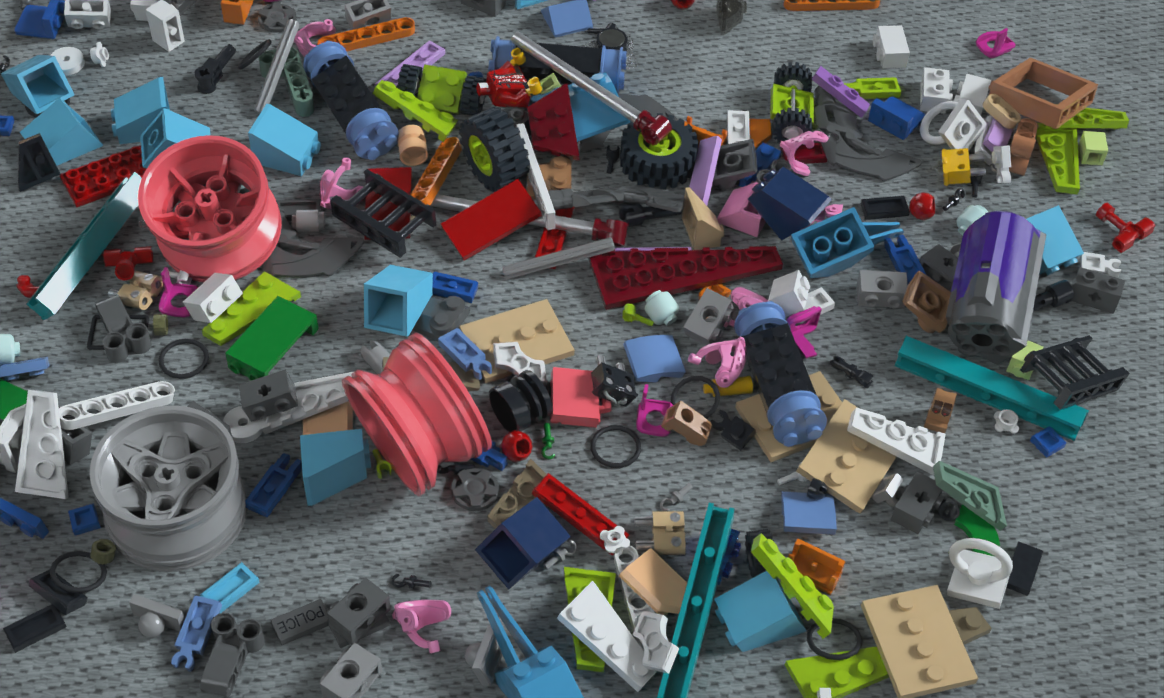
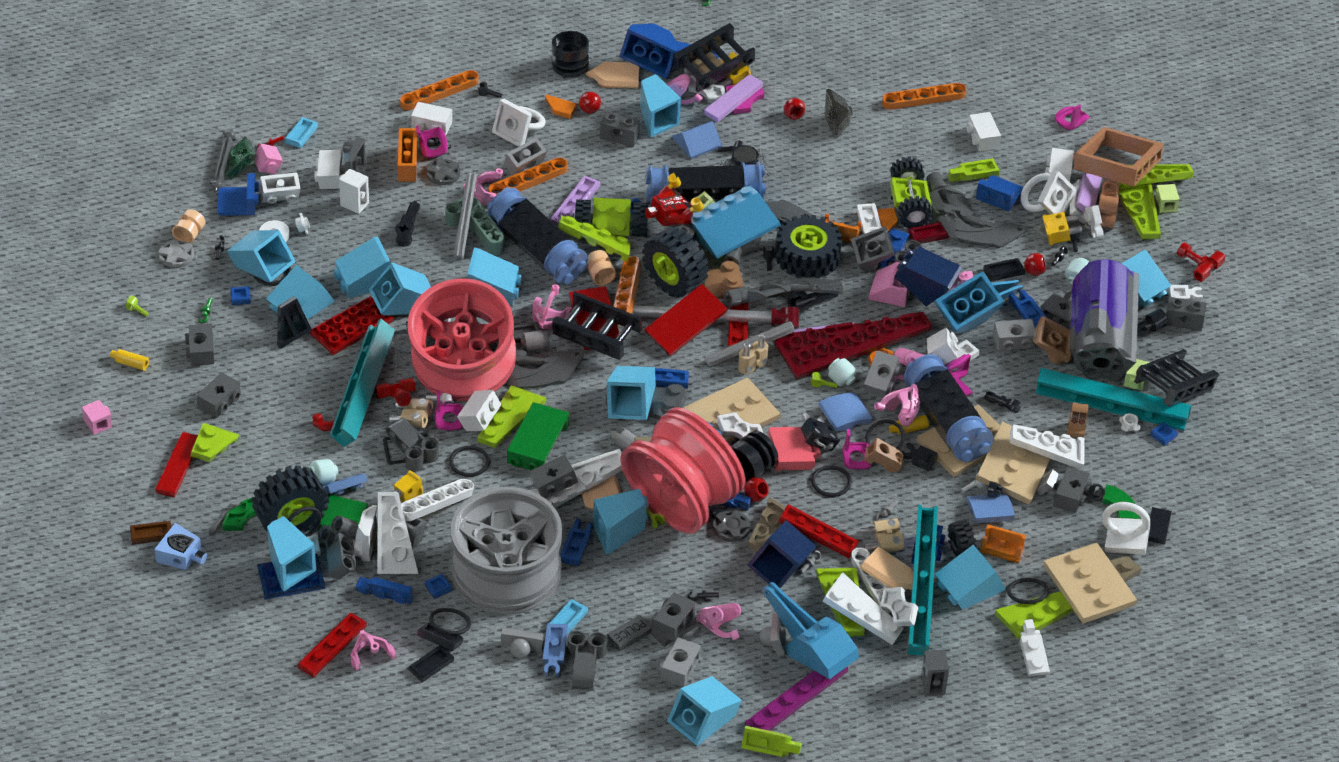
camera: 10 degrees left, 5 degrees down
(87, 385) = (409, 486): none -> yellow piece
(103, 557) = (463, 605): olive axle -> none
(160, 324) = (443, 437): olive axle -> none
(259, 50) = (443, 210): black piece -> none
(537, 182) = (722, 292): white tile -> none
(548, 441) = (777, 483): green hand -> none
(553, 124) = (718, 235): dark red wing -> none
(559, 275) = (753, 357): none -> tan piece
(615, 546) = (850, 544): white plate -> none
(652, 128) = (802, 228): flat silver piece -> none
(700, 222) = (857, 301): tan slope -> none
(705, 167) = (850, 262): lavender tile -> none
(791, 145) = (919, 227): bright pink helmet -> none
(794, 584) = (992, 554): lime wing -> none
(840, 91) = (948, 176): medium lavender plate -> none
(935, 88) = (1027, 163): white brick -> none
(972, 492) = (1111, 475): sand green wing -> none
(1001, 111) = (1086, 176): tan beam -> none

